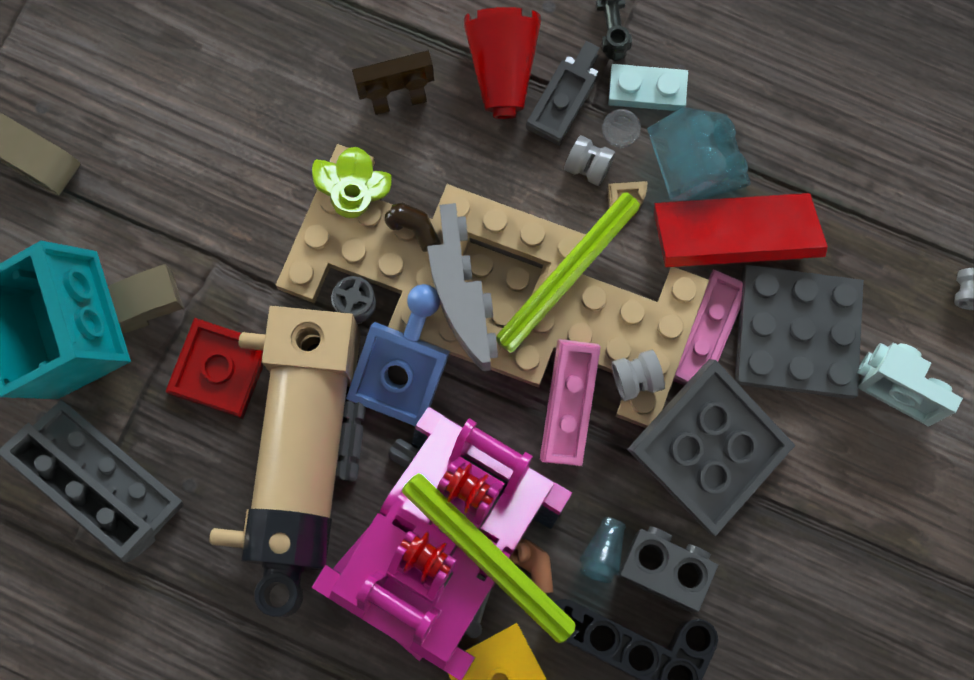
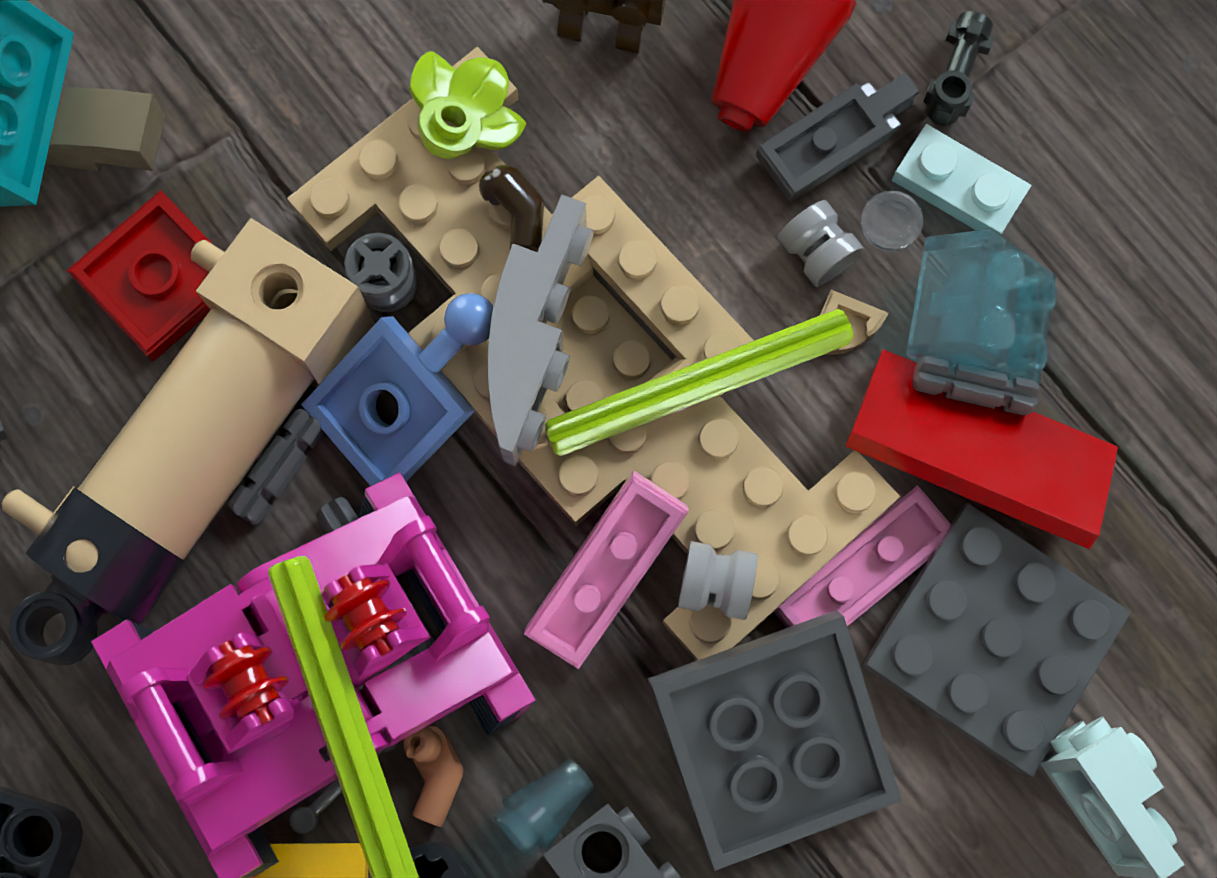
camera: 25 degrees right, 0 degrees up
(717, 197) = (975, 385): none -> dark grey axle

